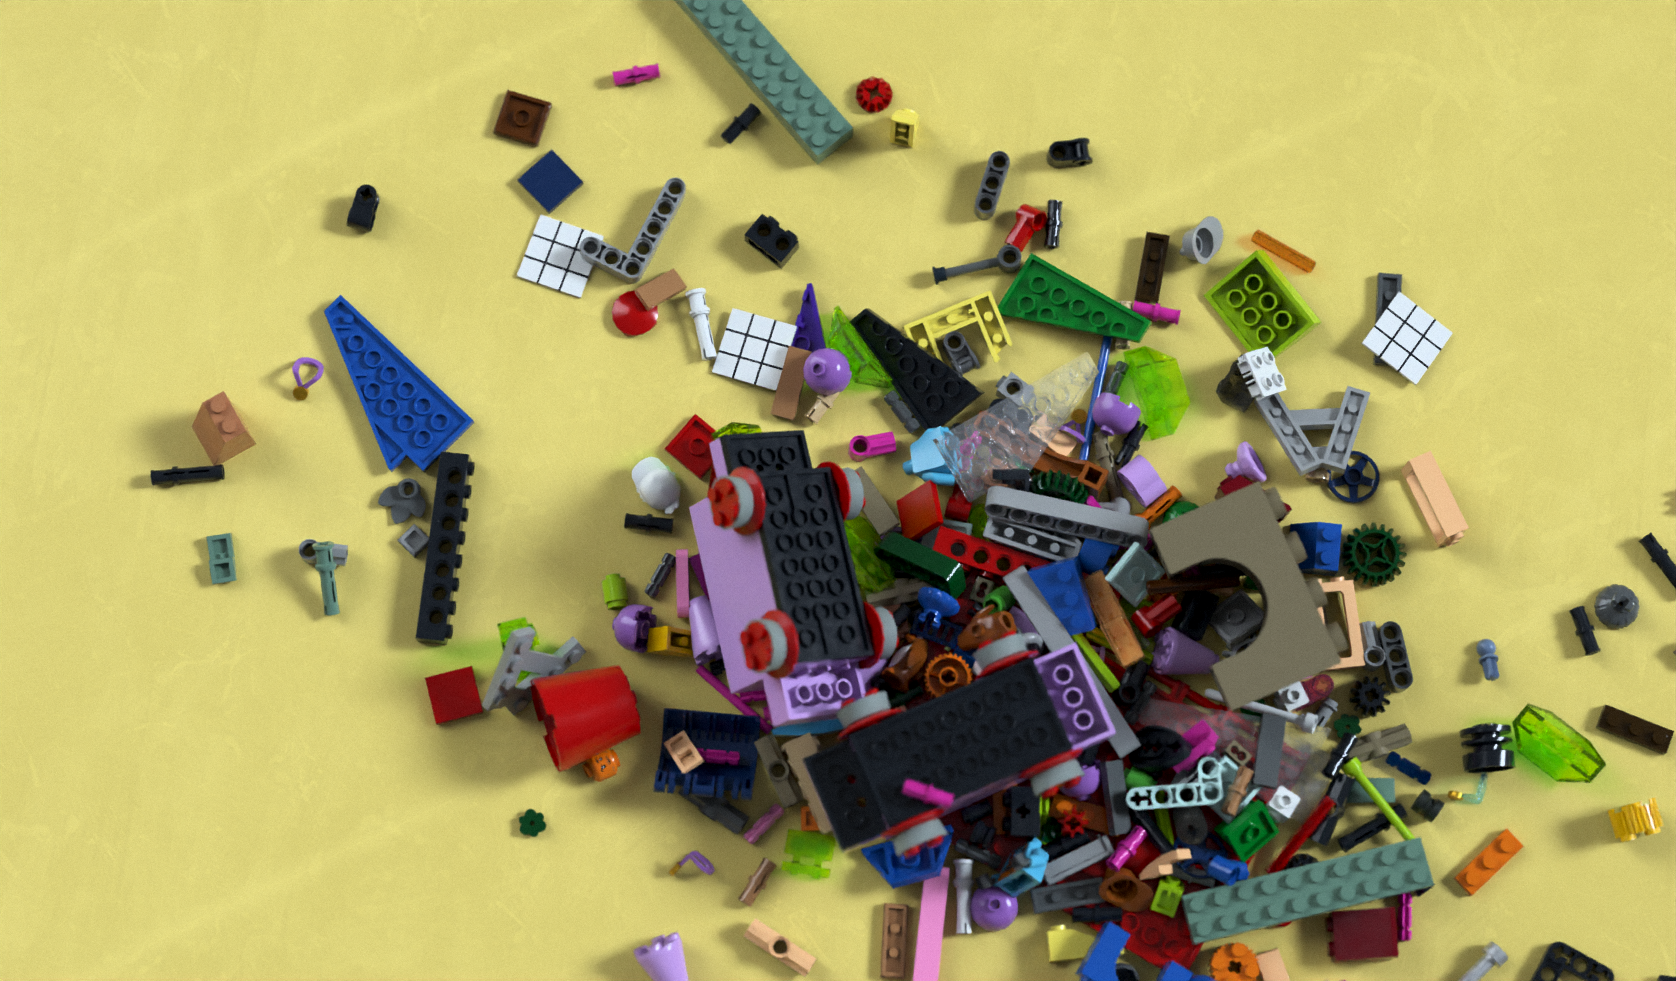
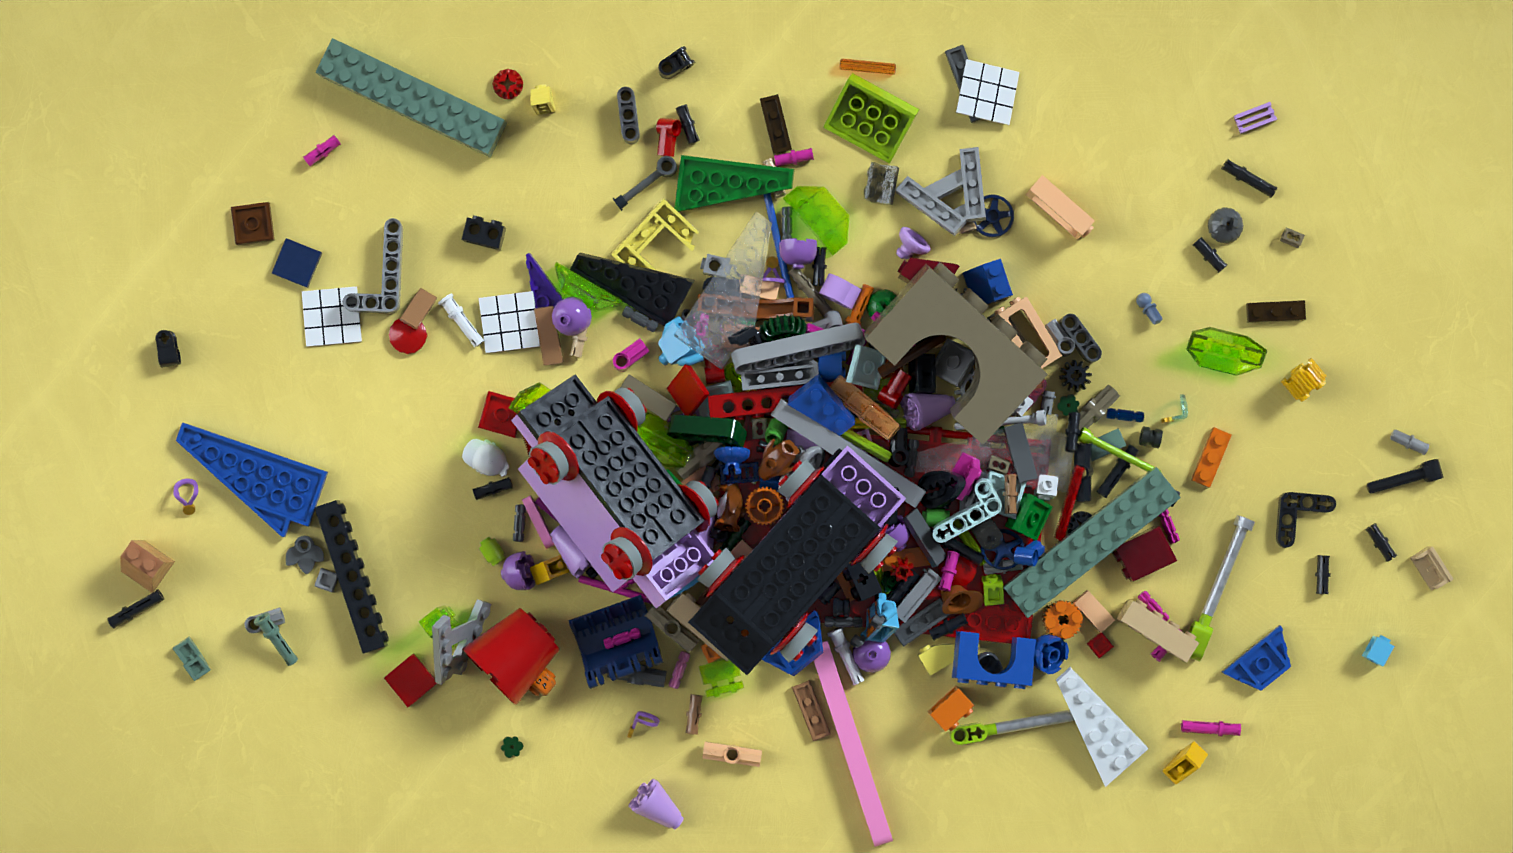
camera: 20 degrees left, 10 degrees up
(683, 752) = (597, 647): light nougat slope -> none
(740, 123) = (418, 153): black axle -> none
(928, 793) = (791, 611): dark pink axle -> none
(962, 358) = (664, 257): flat silver piece -> none
(1163, 865) = (981, 570): light nougat slope -> none
(1203, 240) = (805, 86): light grey piece -> none
(1265, 373) = (894, 169): white hinge -> none
(1380, 560) = (1024, 267): dark green gear -> none
(1487, 748) = (1176, 376): black wheel -> none

